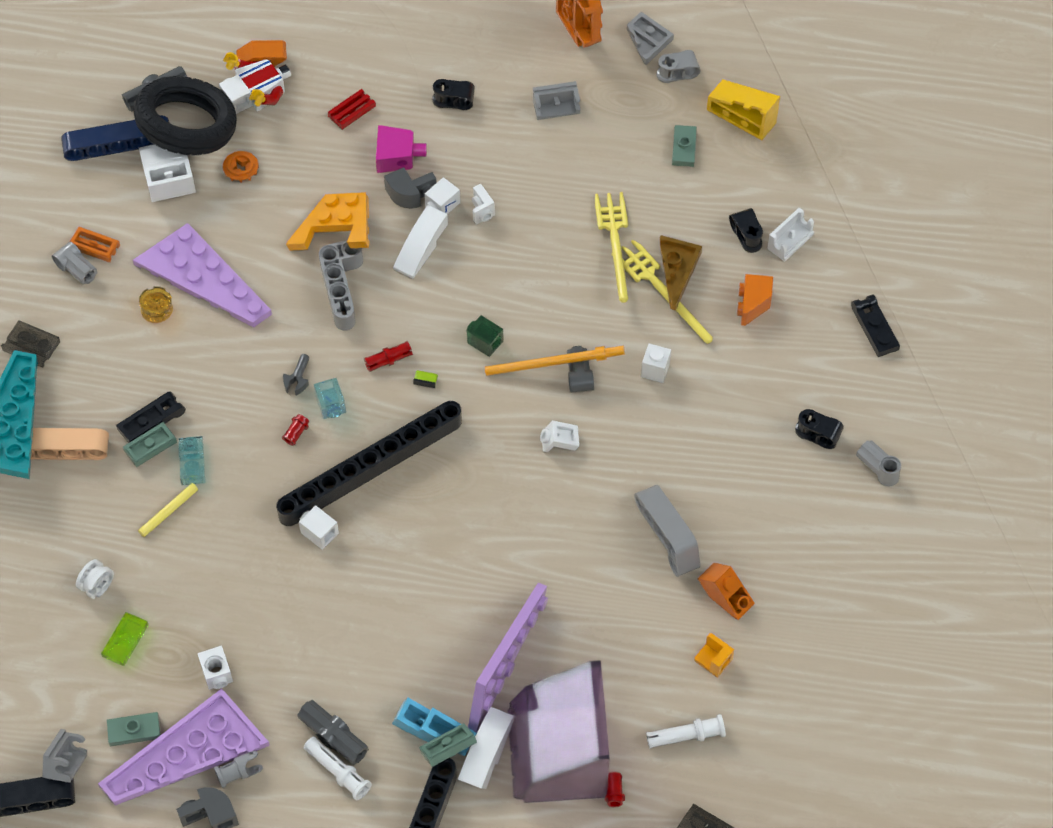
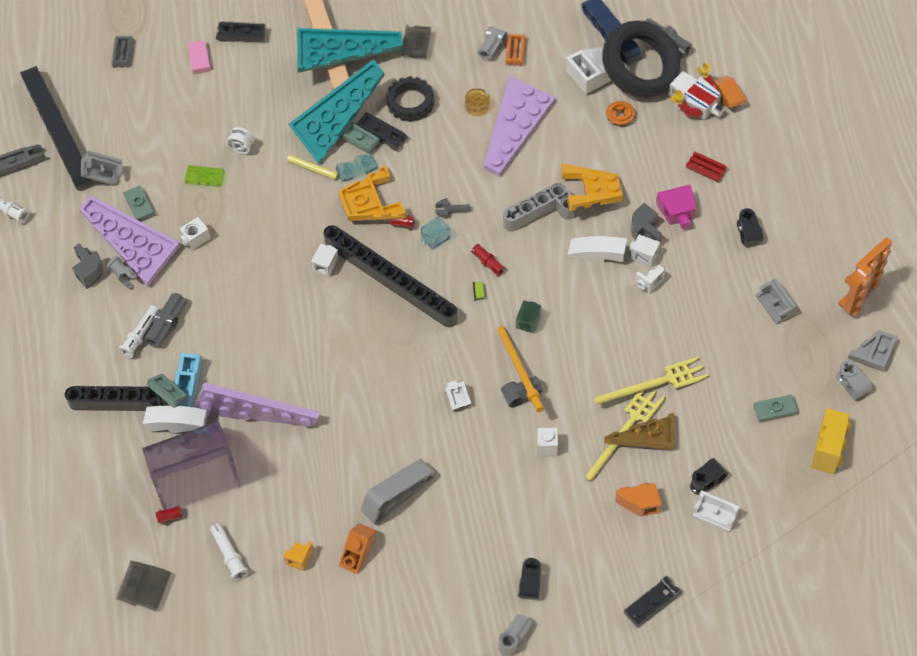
camera: 75 degrees right, 0 degrees up
(109, 465) = (329, 117): none -> teal wing
(116, 394) = (413, 113): none -> black tyre
(253, 463) = (362, 202): none -> light orange wing

